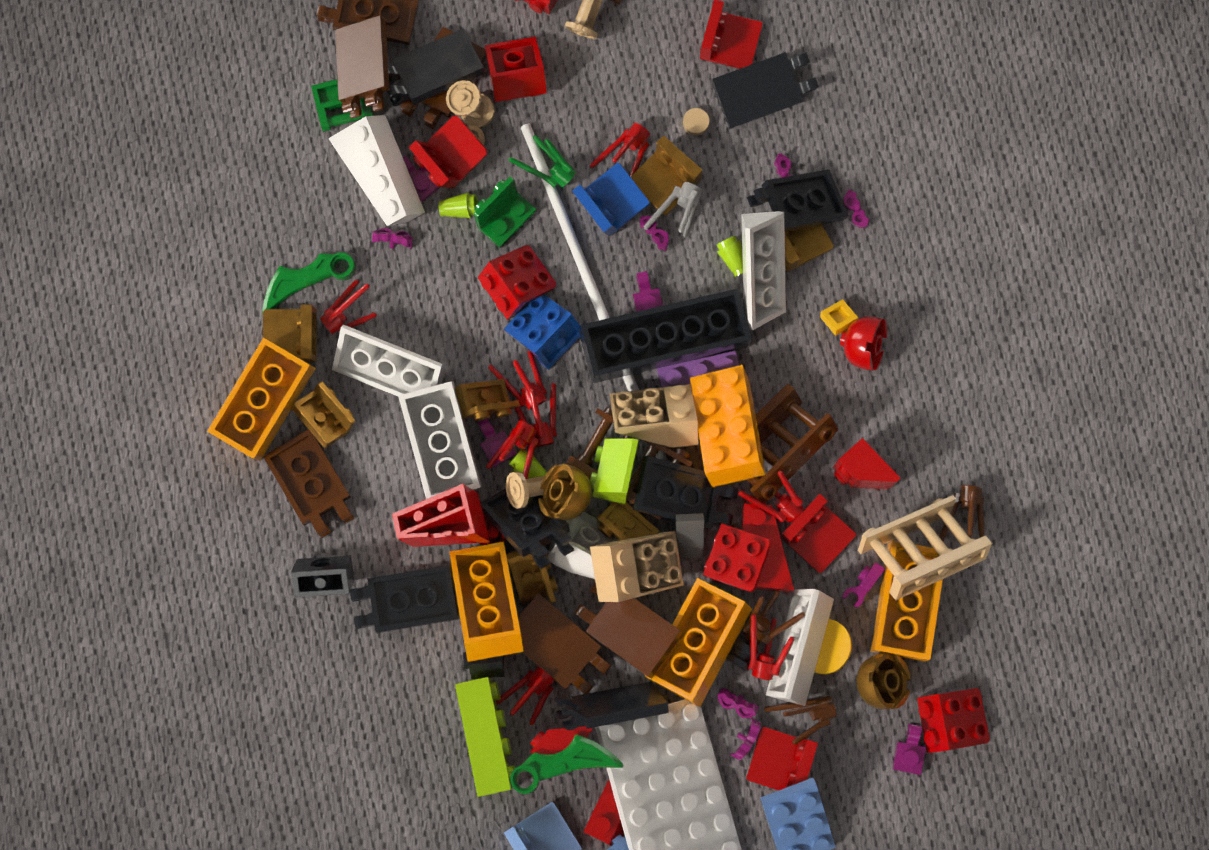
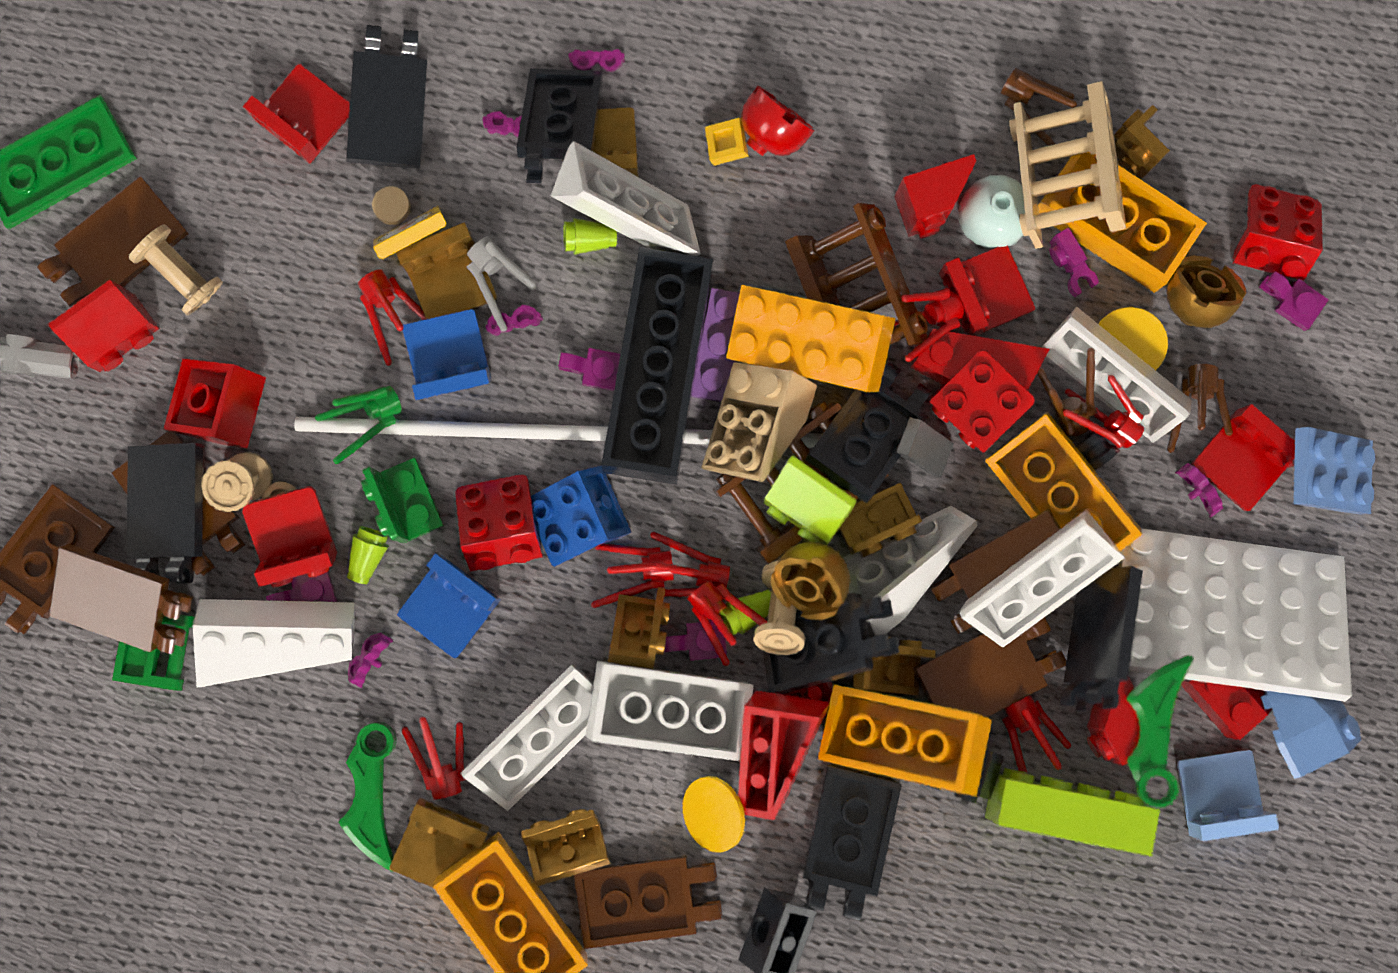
camera: 70 degrees left, 5 degrees up
(385, 501) = (713, 814): none -> yellow piece
(448, 273) = (448, 606): none -> blue bracket
(631, 646) = (1042, 580): none -> white slope
(636, 566) = (941, 531): tan slope -> none
(680, 139) = (409, 232): none -> yellow tile
(730, 701) = (1146, 487): magenta piece -> none
(872, 511) = (992, 211): none -> light aqua cylinder
(960, 593) = (1137, 146): none -> pearl gold bracket

